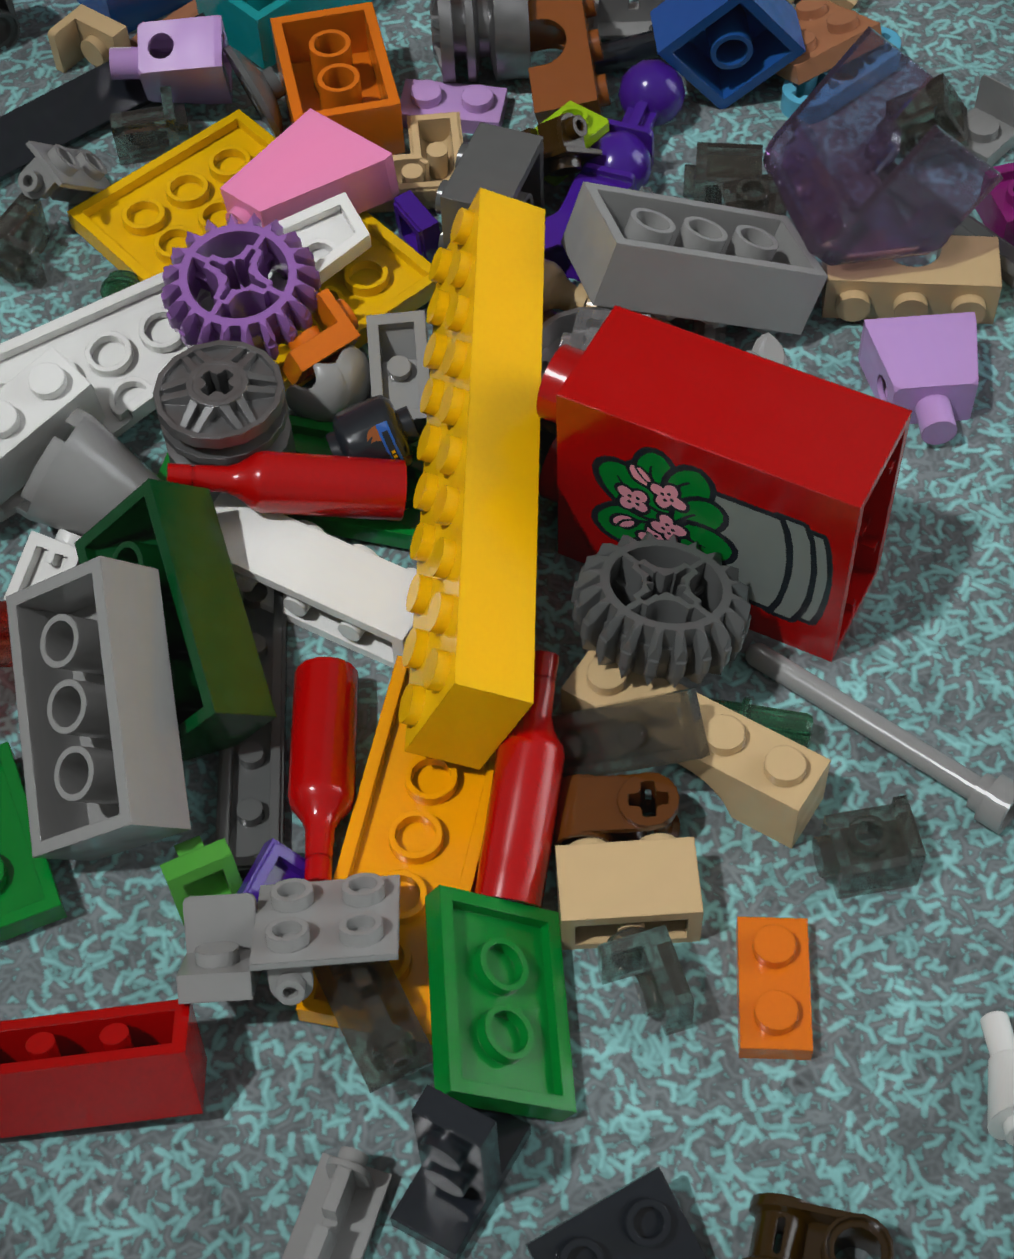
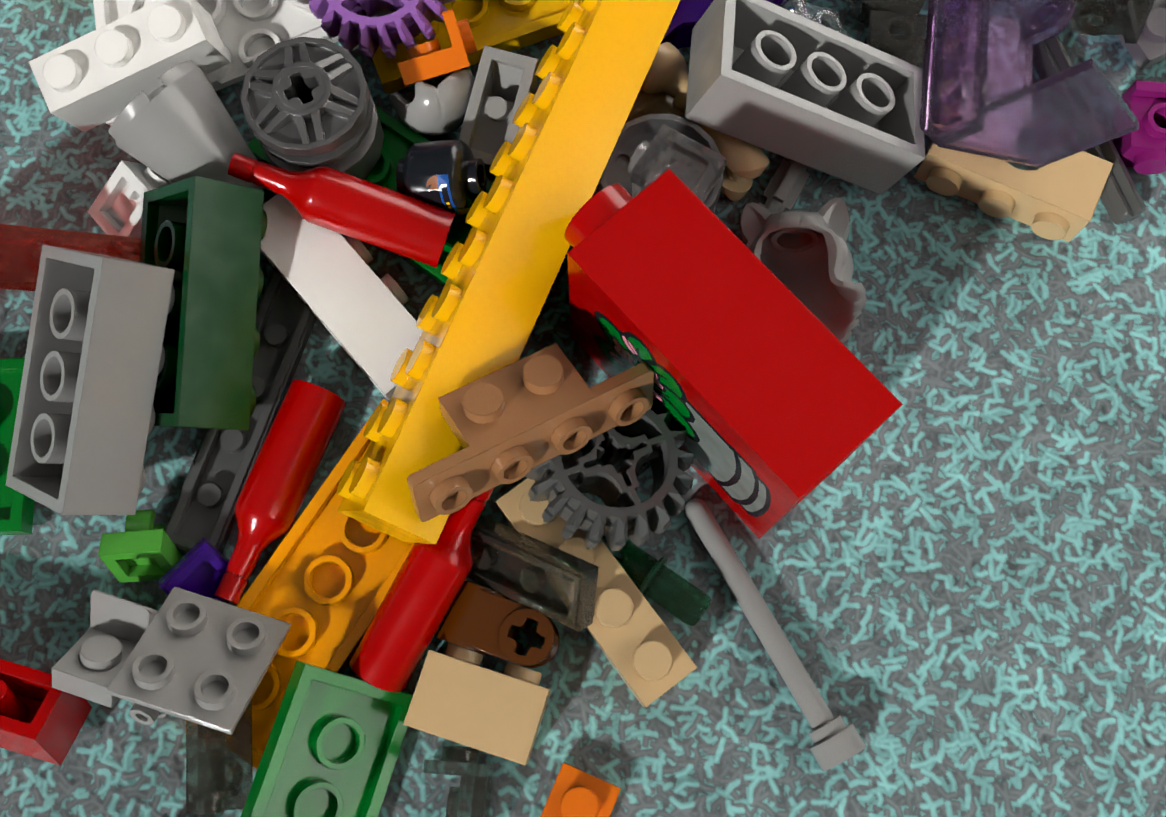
camera: 20 degrees right, 20 degrees up
(572, 567) = (521, 421): none -> medium nougat bracket
(870, 869) = (727, 754): clear smoke brick -> none
(924, 367) = (977, 278): lavender torso -> none

